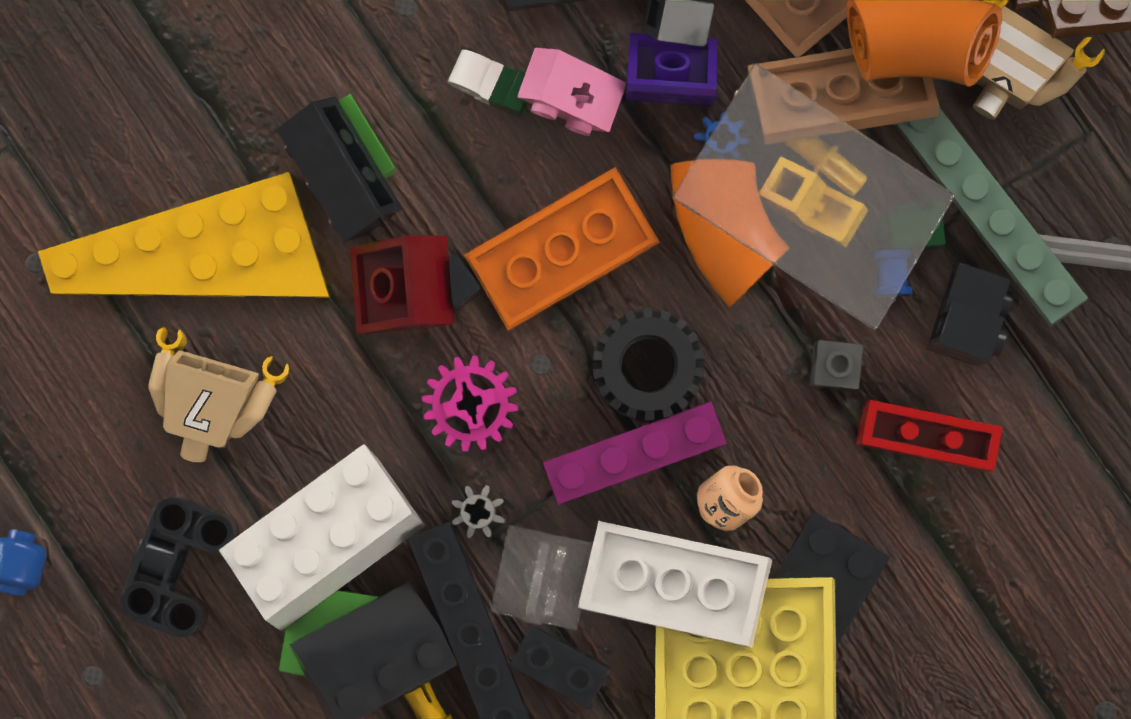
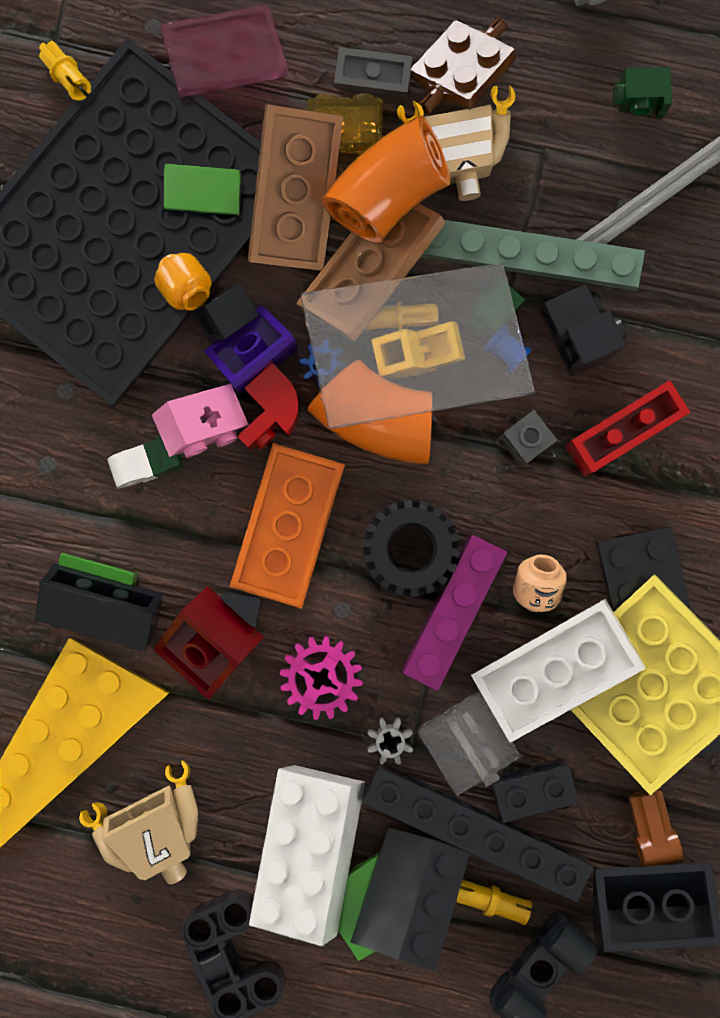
camera: 50 degrees left, 0 degrees up
(653, 136) = (280, 407): none -> red brick

